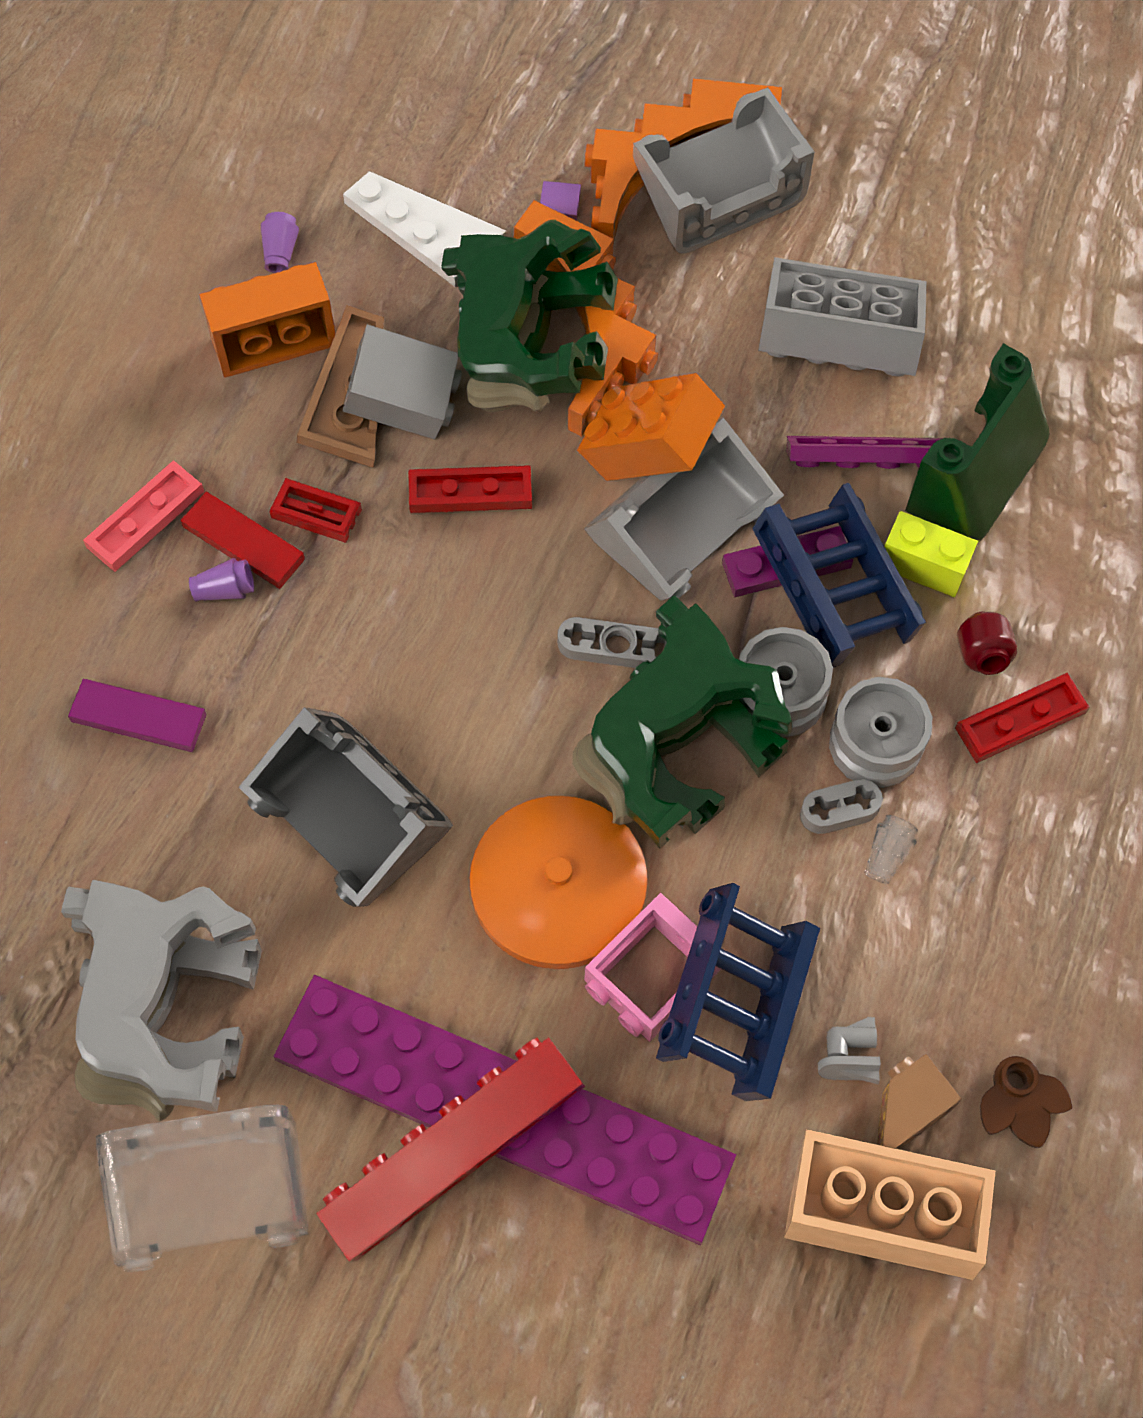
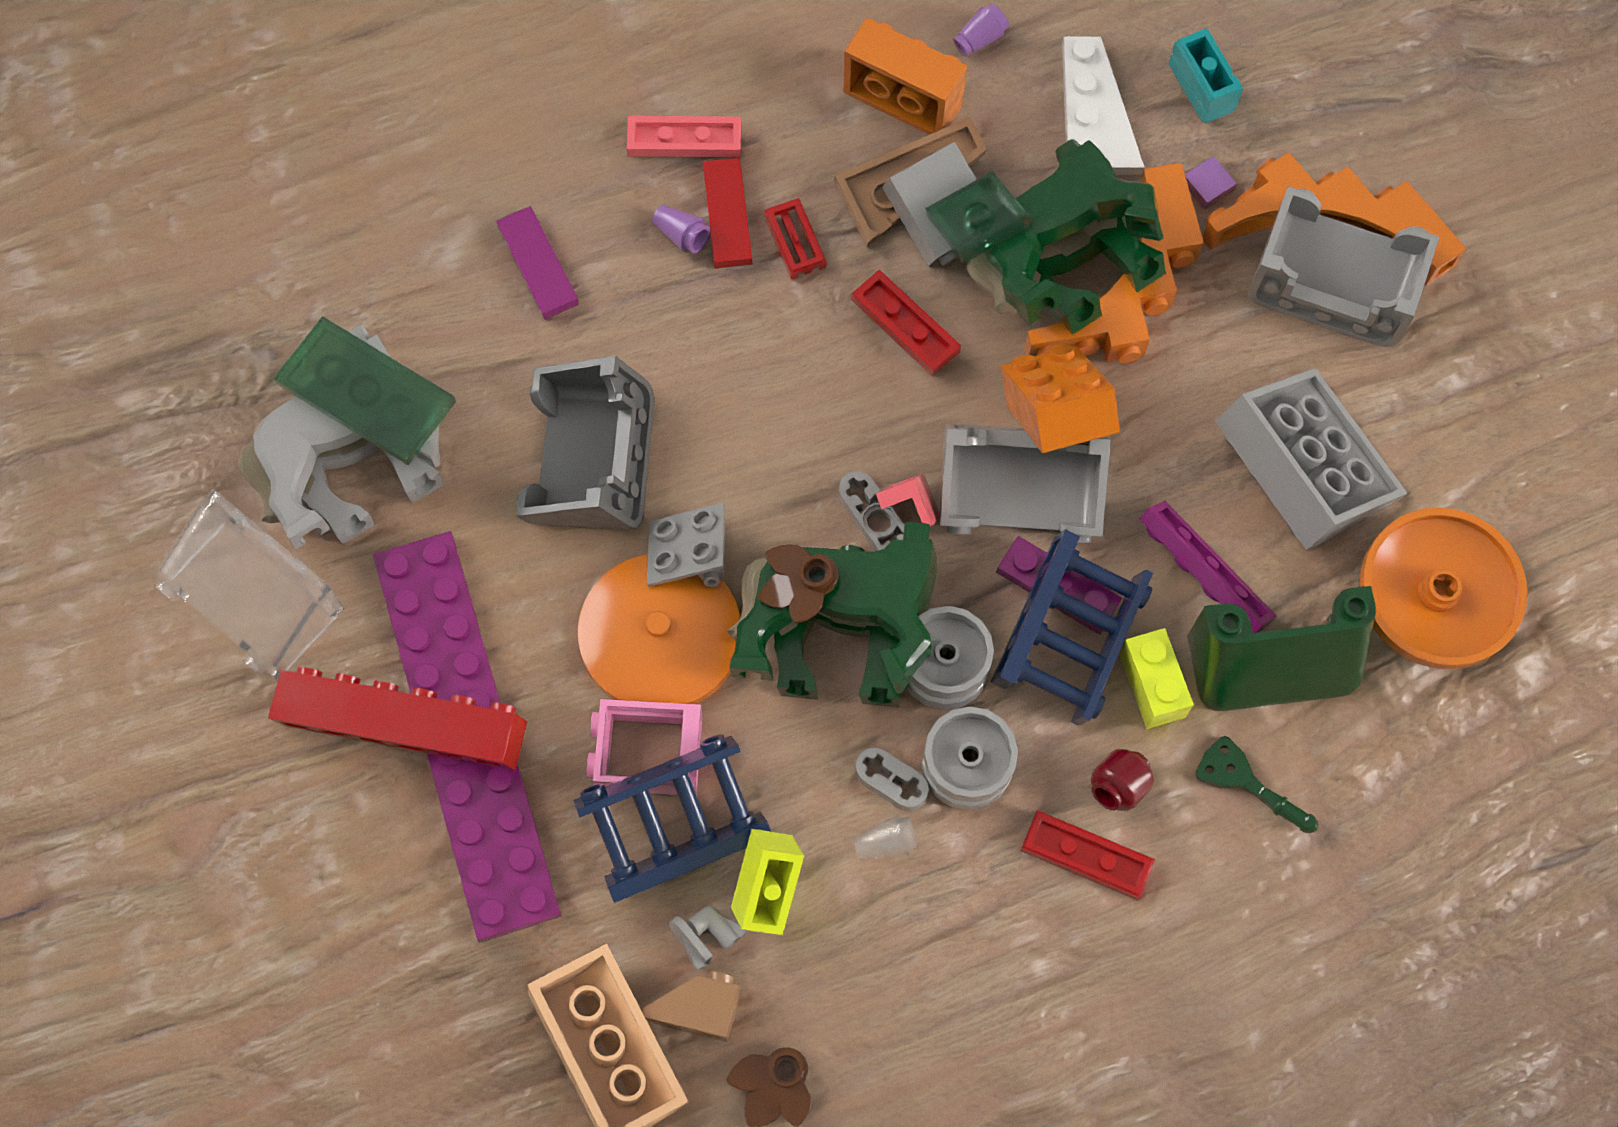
camera: 50 degrees right, 5 degrees up
(137, 928) = (365, 390): none -> clear green tile
(450, 357) = (978, 217): none -> clear green tile
(477, 130) = (1205, 75): none -> teal brick
(510, 795) = (688, 546): none -> light grey hinge
(621, 595) = (914, 488): none -> coral panel
(634, 731) = (793, 582): none -> reddish brown plate
(858, 960) = (767, 882): none -> neon yellow brick
(1032, 305) = (1444, 588): none -> orange dish
(1054, 562) = (1243, 778): none -> dark green piece

